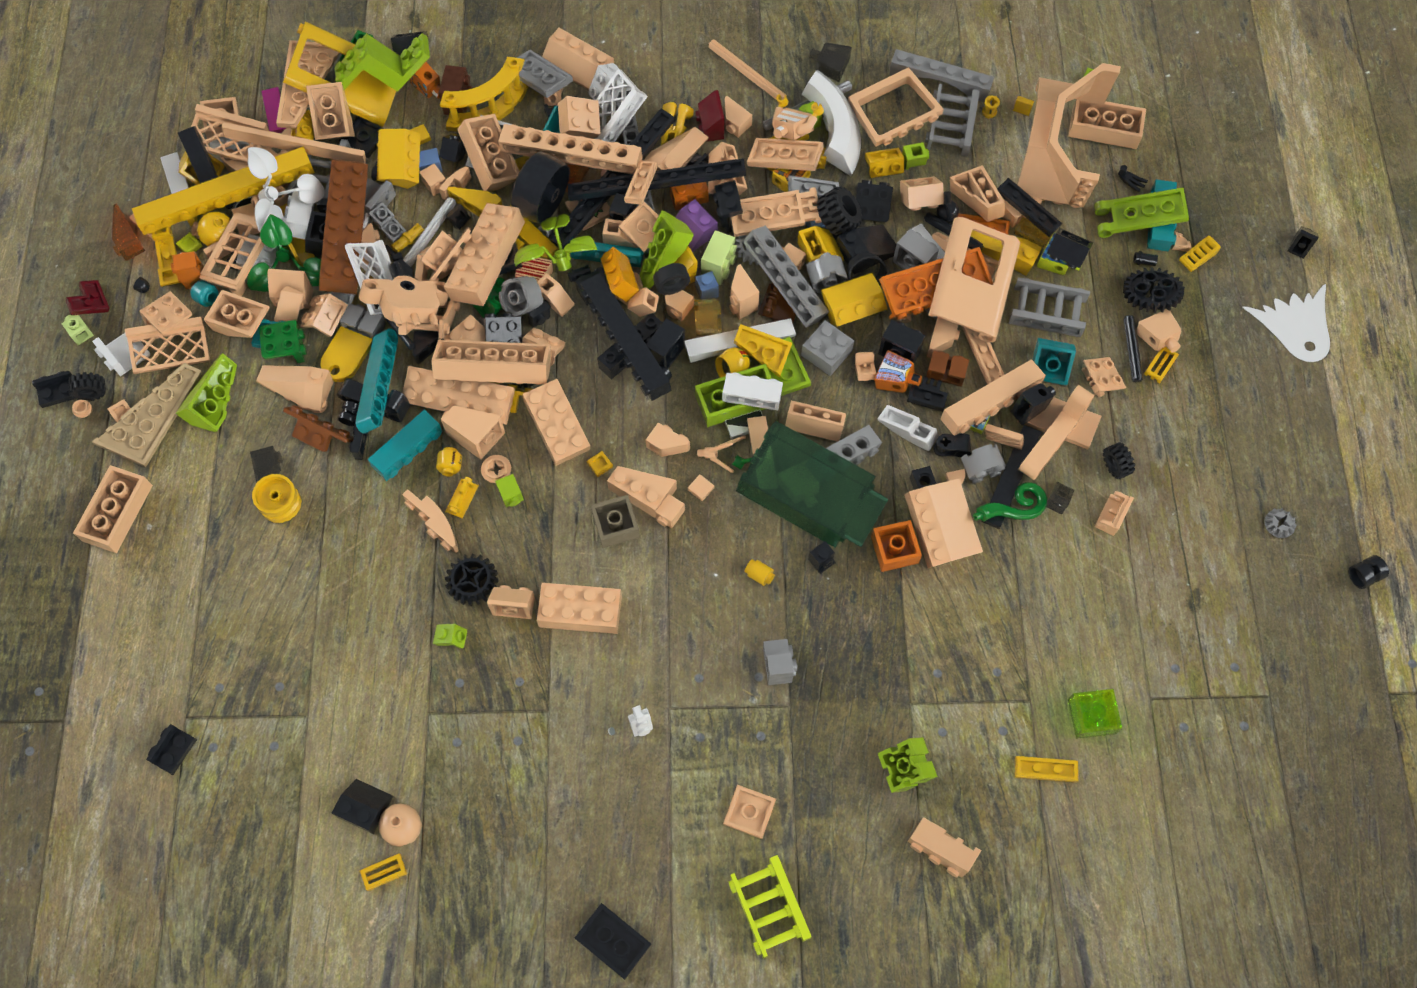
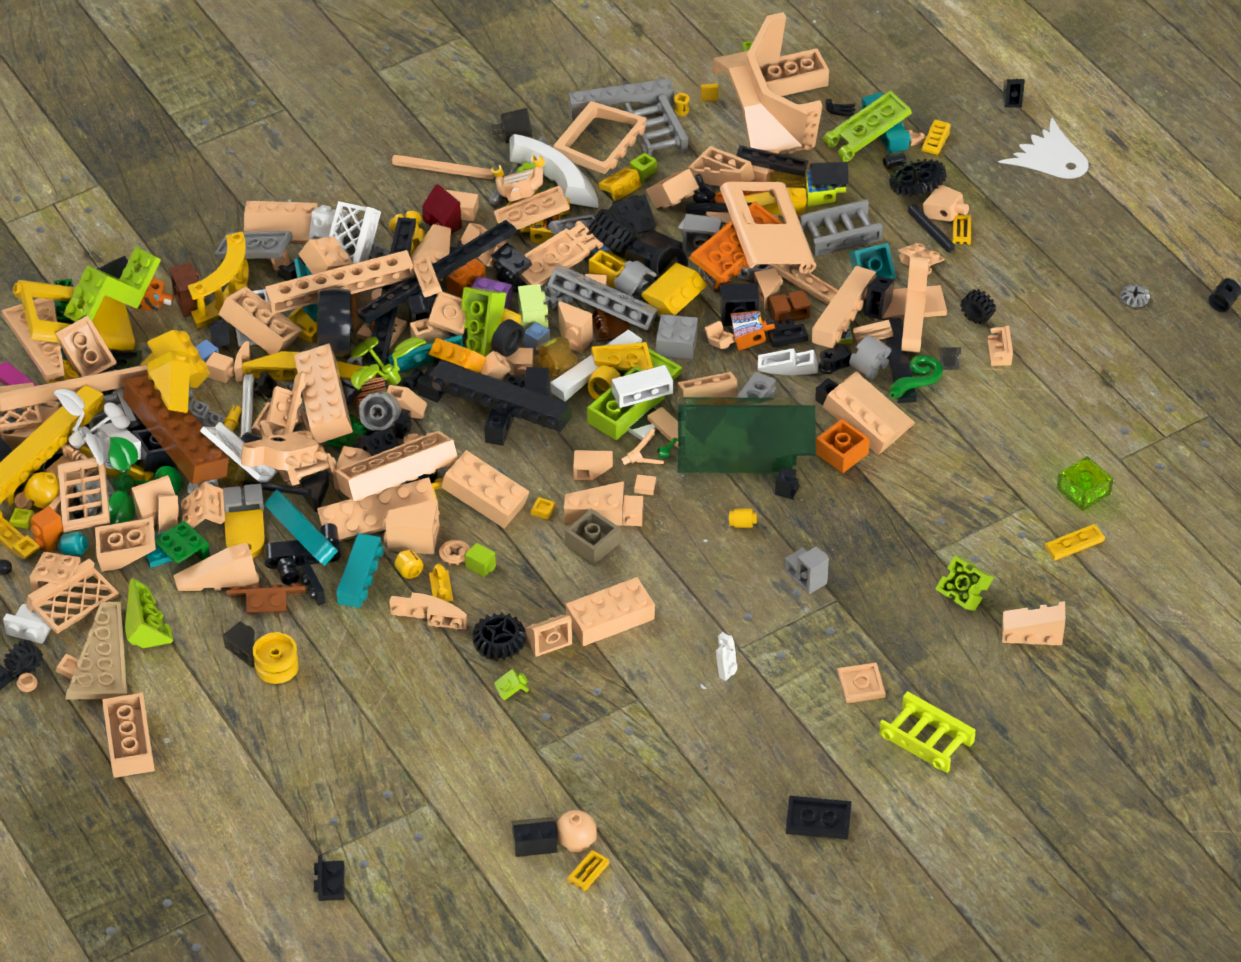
camera: 30 degrees left, 20 degrees down
(365, 178) = (171, 378): none -> yellow wedge

